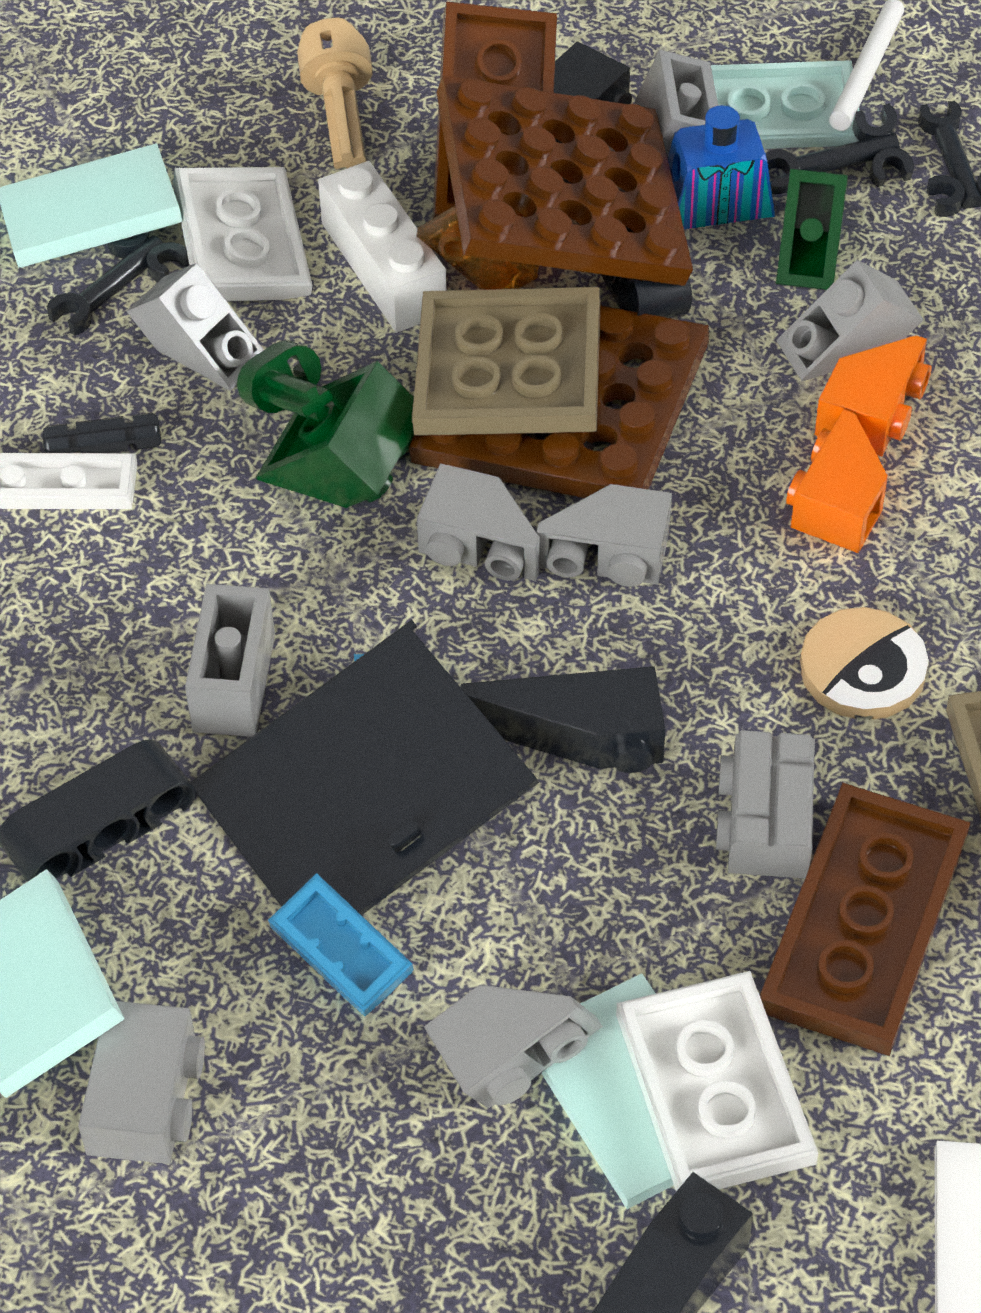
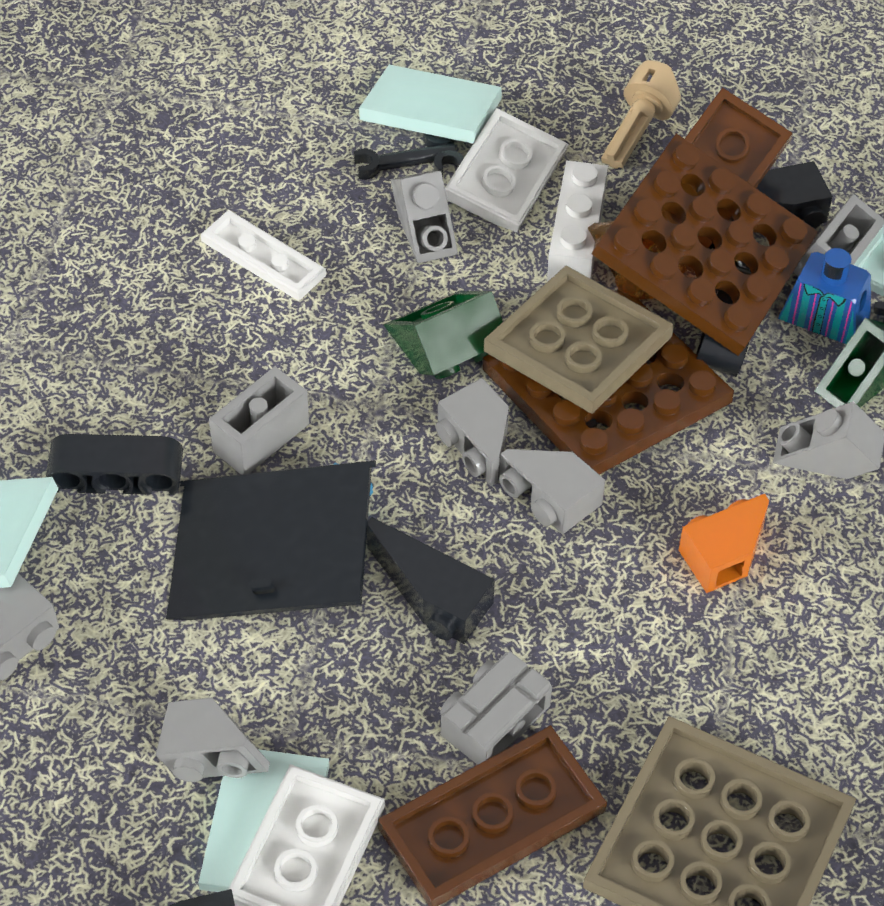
camera: 35 degrees right, 0 degrees up
(103, 435) = (318, 247): black axle -> none
(270, 385) = (435, 273): dark green piece -> none
(341, 945) = (176, 627): dark azure plate -> none
(863, 663) = (641, 662): tile -> none
(875, 389) = (798, 496): orange slope -> none

